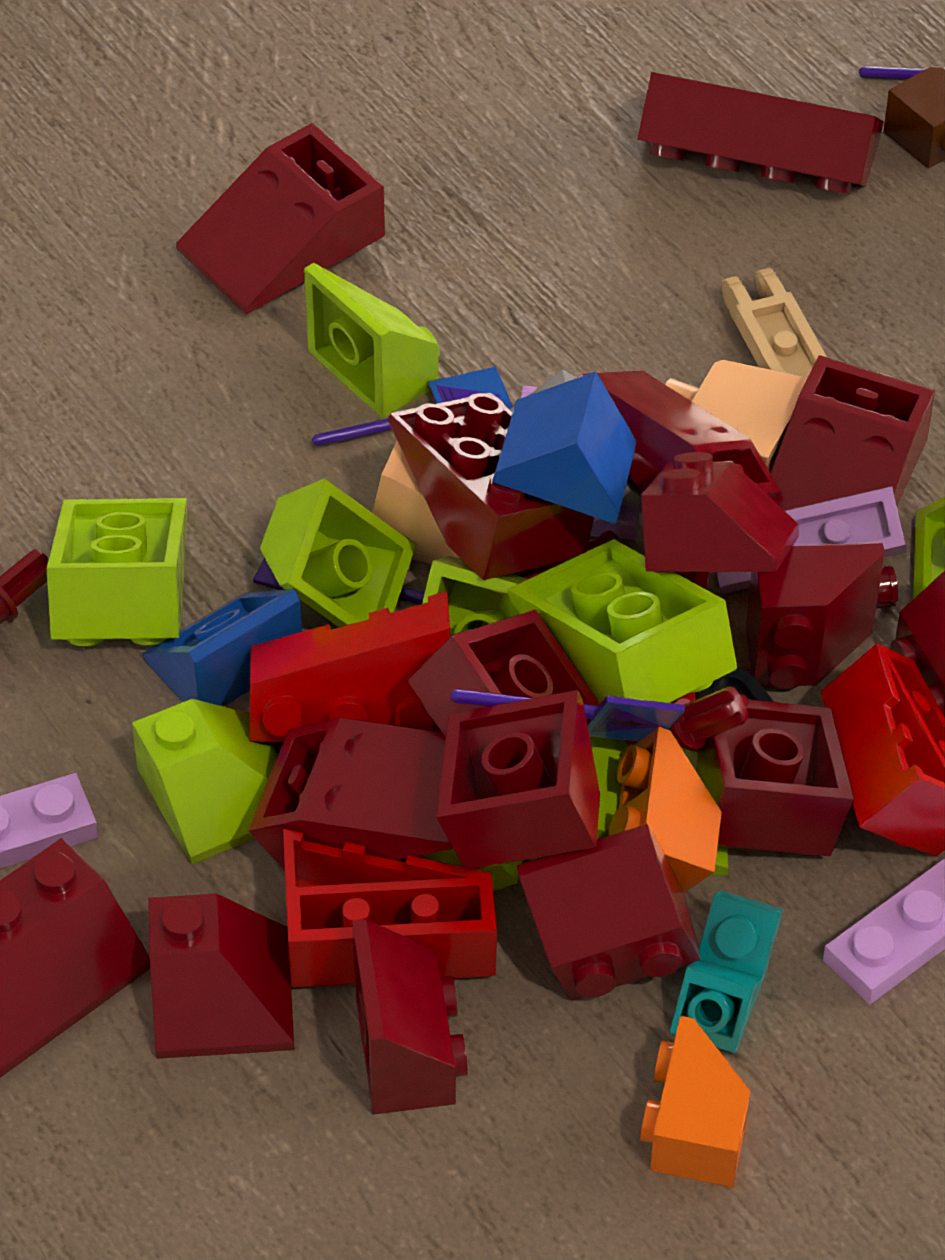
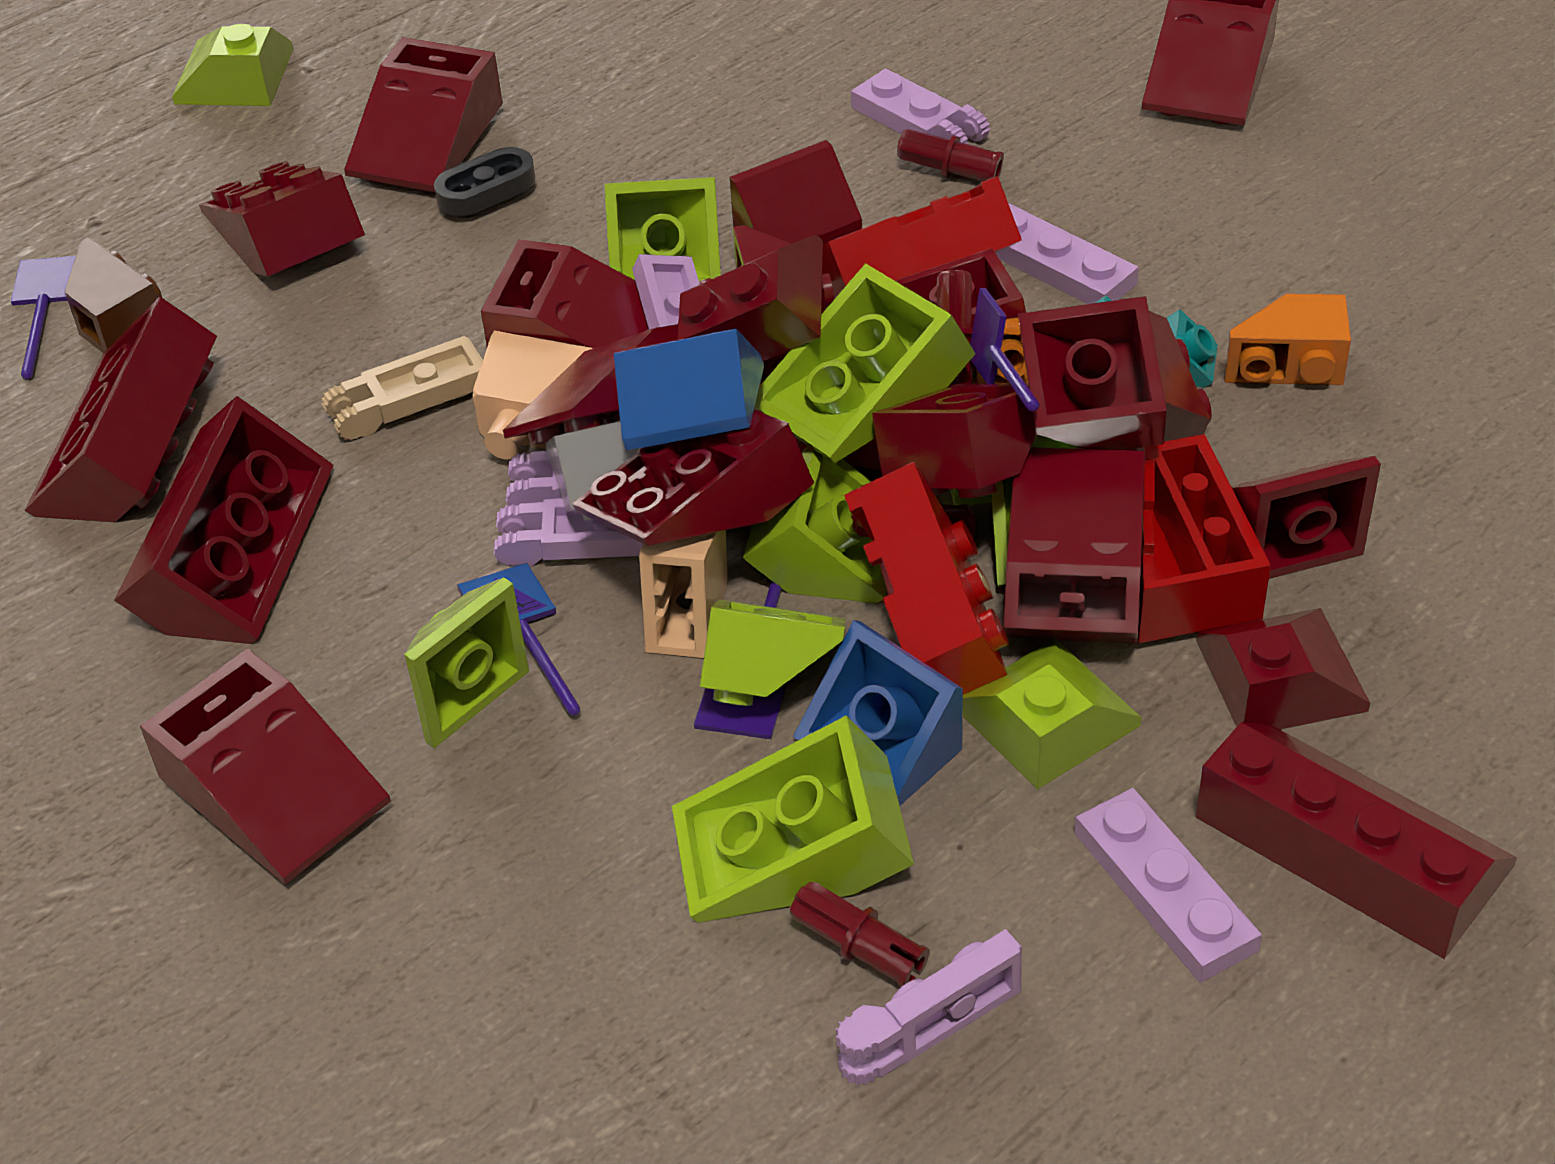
camera: 95 degrees left, 5 degrees down
(592, 203) = (226, 529): none -> dark red slope

